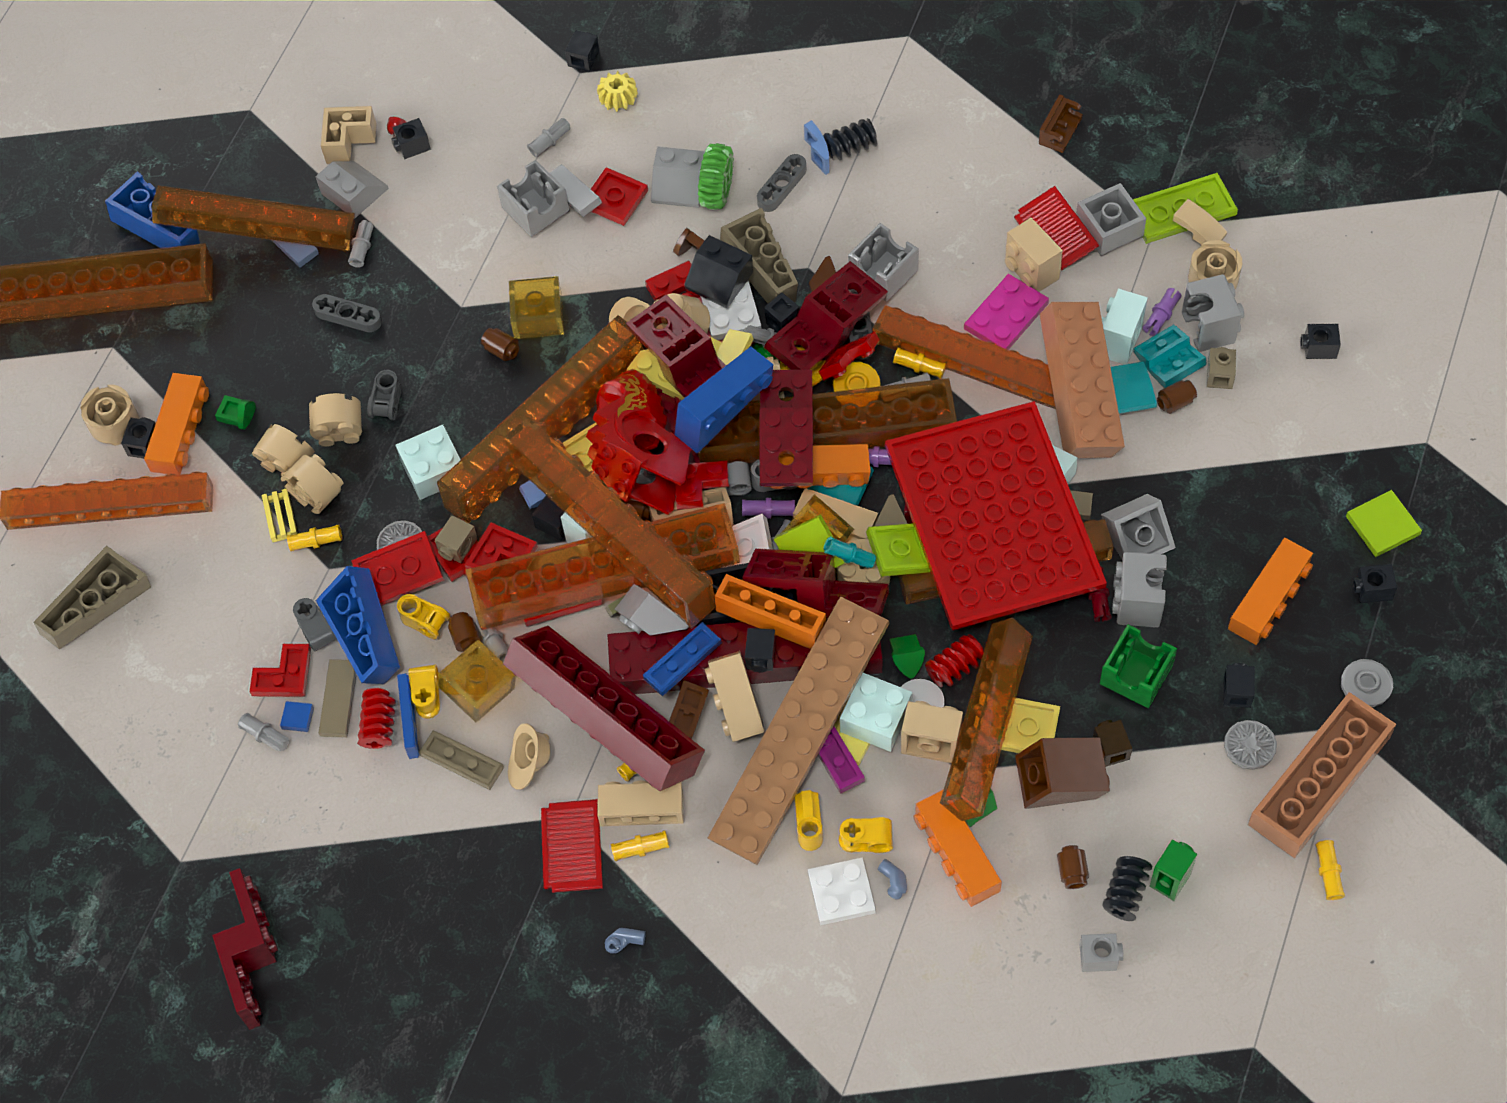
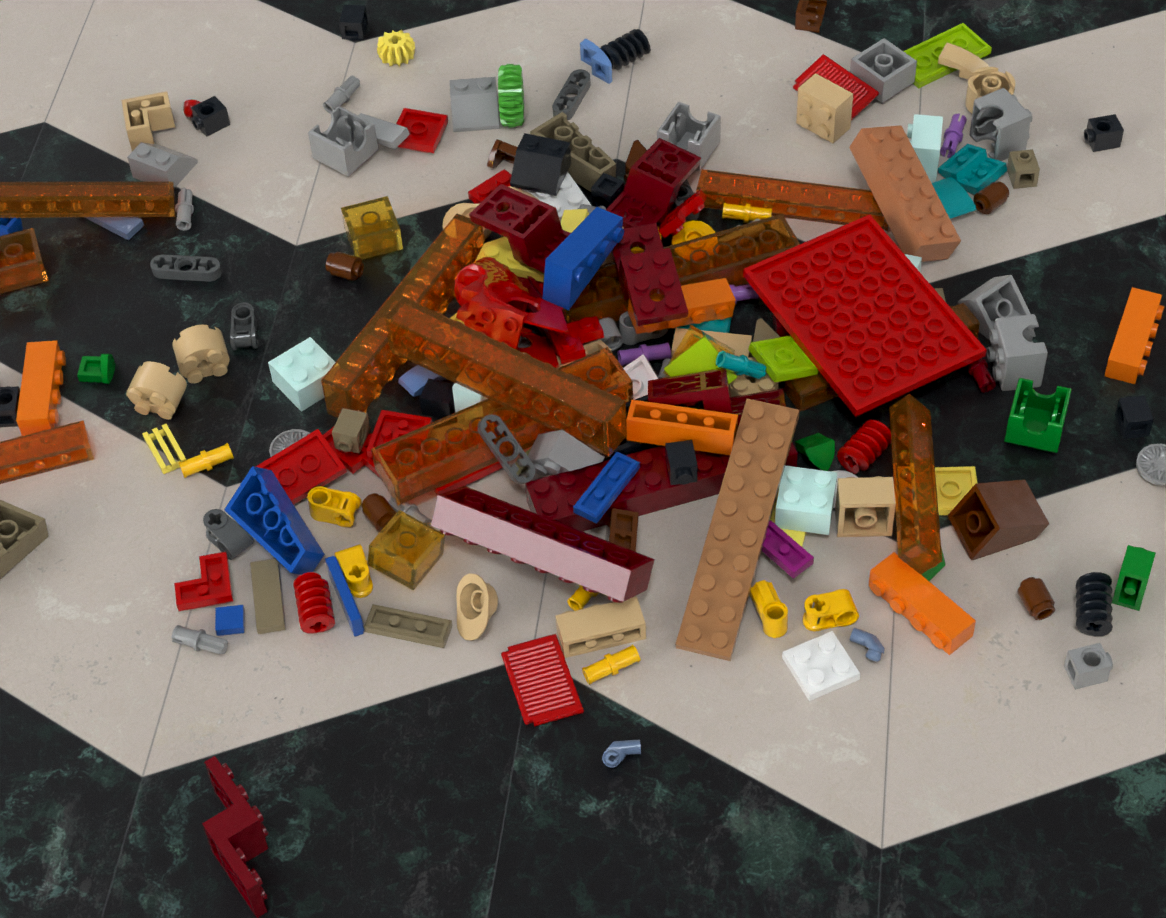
camera: 15 degrees left, 10 degrees down
(312, 483) = (193, 410): tan brick -> none
(592, 576) = (517, 449): none -> dark grey beam
(734, 696) = (667, 511): tan brick -> none
(1006, 312) = (813, 158): dark pink plate -> none
(1113, 742) = (1039, 482): dark brown brick -> none

